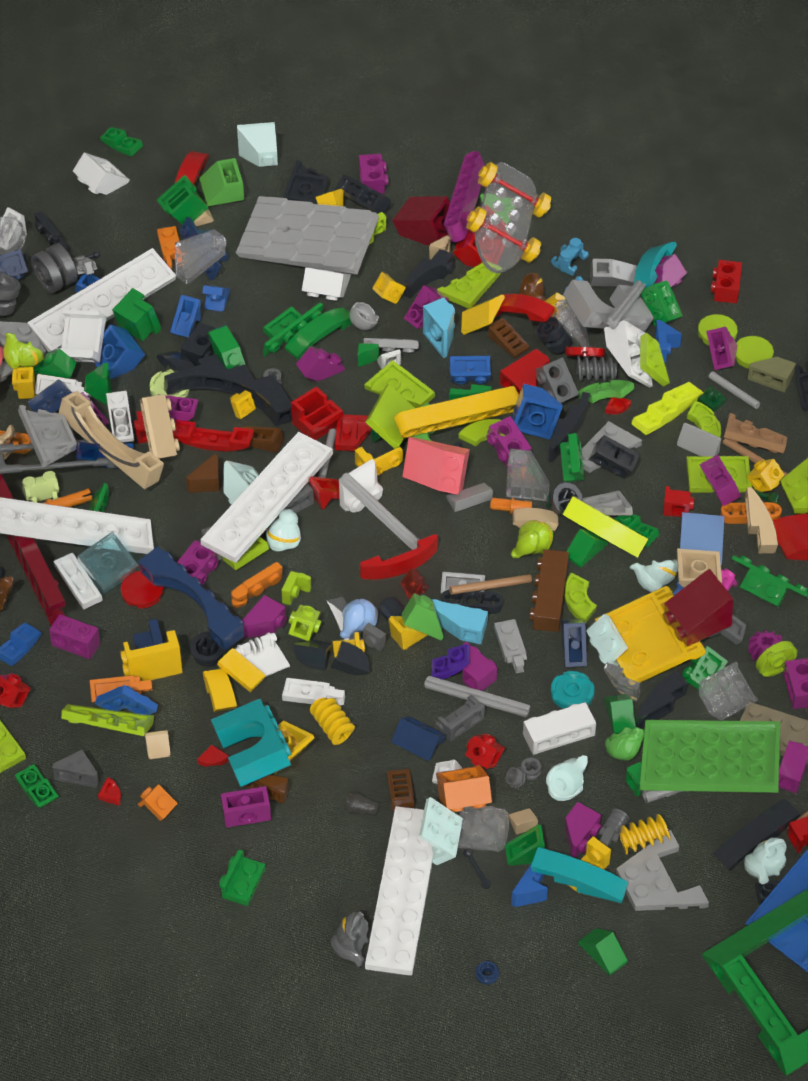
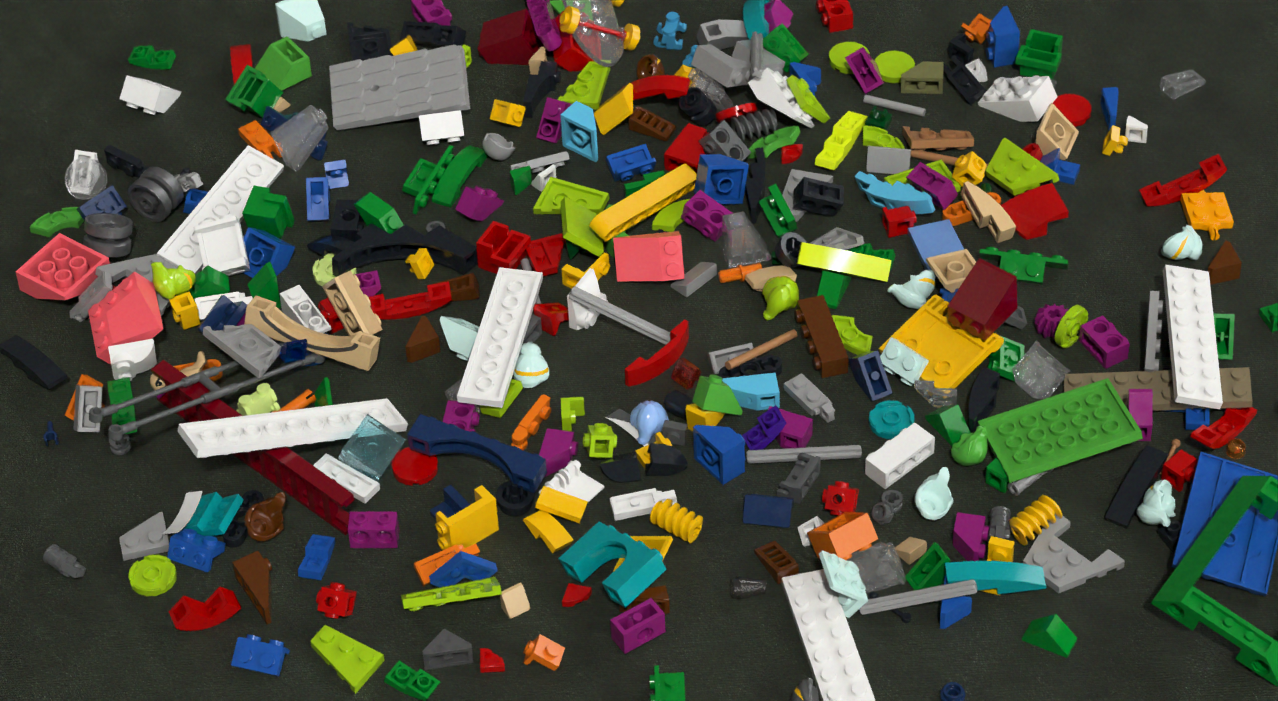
camera: 20 degrees left, 5 degrees down
(401, 669) = (719, 451): none -> blue slope
(501, 870) = (919, 596): none -> light grey axle
(684, 477) = (894, 196): none -> medium azure slope

